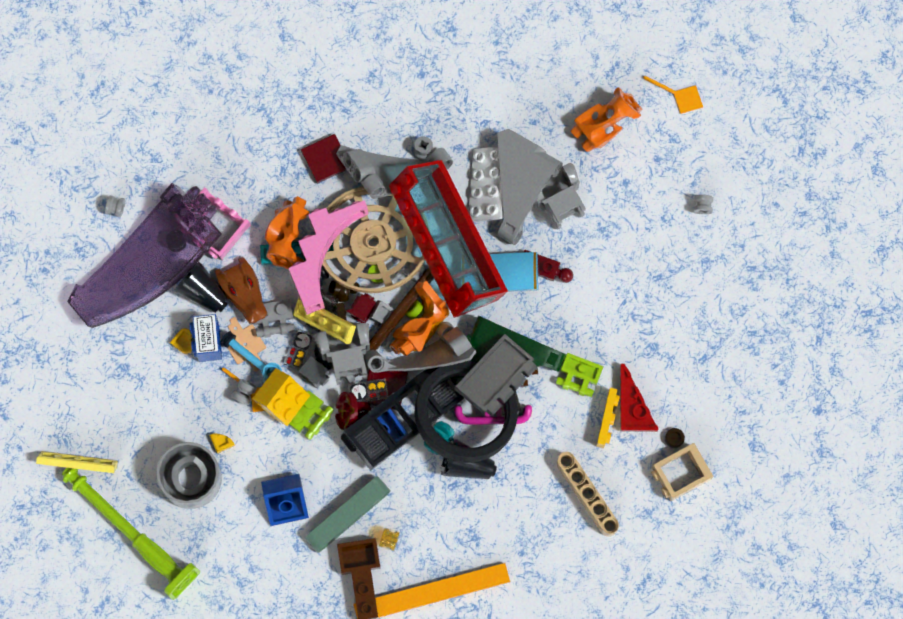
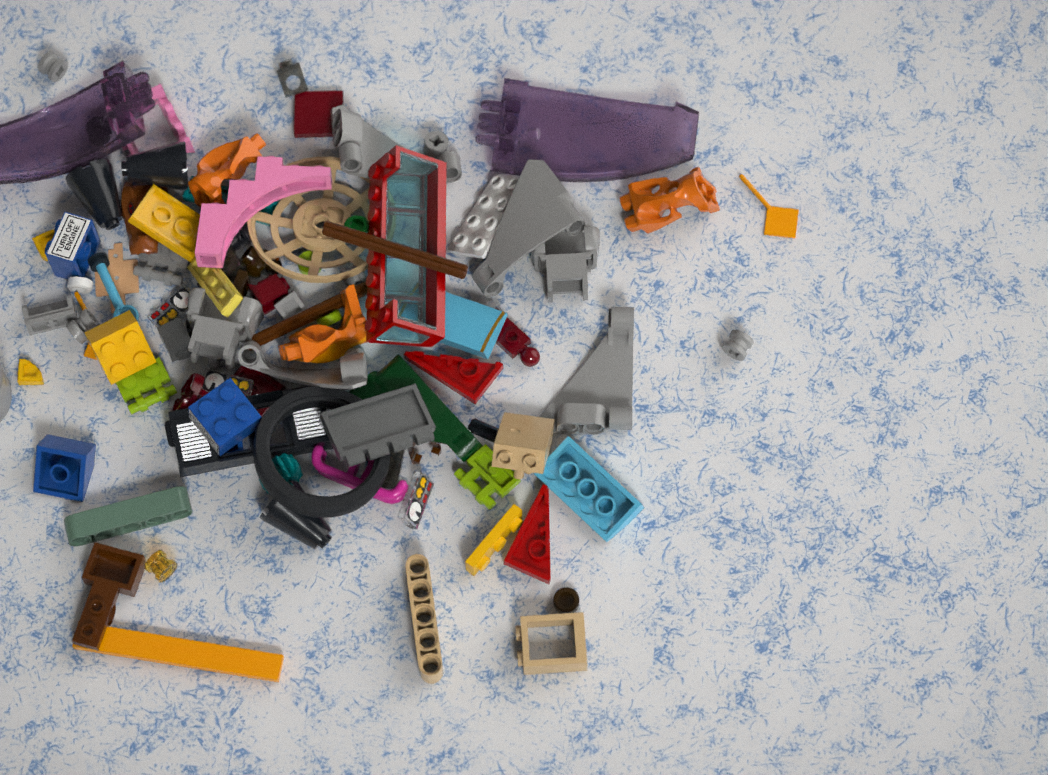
camera: 30 degrees right, 10 degrees down
(214, 393) = (49, 316): none -> light grey hinge
(224, 362) = (80, 285): none -> white tile
(239, 251) = (159, 166): none -> black cone
(267, 288) = (168, 222): none -> yellow tile
(289, 135) = (289, 68): none -> clear smoke bracket
(388, 417) = (224, 416): none -> blue brick
(402, 235) = (358, 223): none -> green tile
(443, 243) = (395, 249): none -> reddish brown axle
(524, 93) = (584, 134): none -> clear purple windscreen
(528, 309) = (461, 375): none -> red wing
(539, 413) = (415, 500): none -> tile
(594, 341) = (519, 442): none -> tan piece
(624, 279) = (603, 387): none -> light grey panel
(652, 353) = (589, 490): none -> medium azure slope

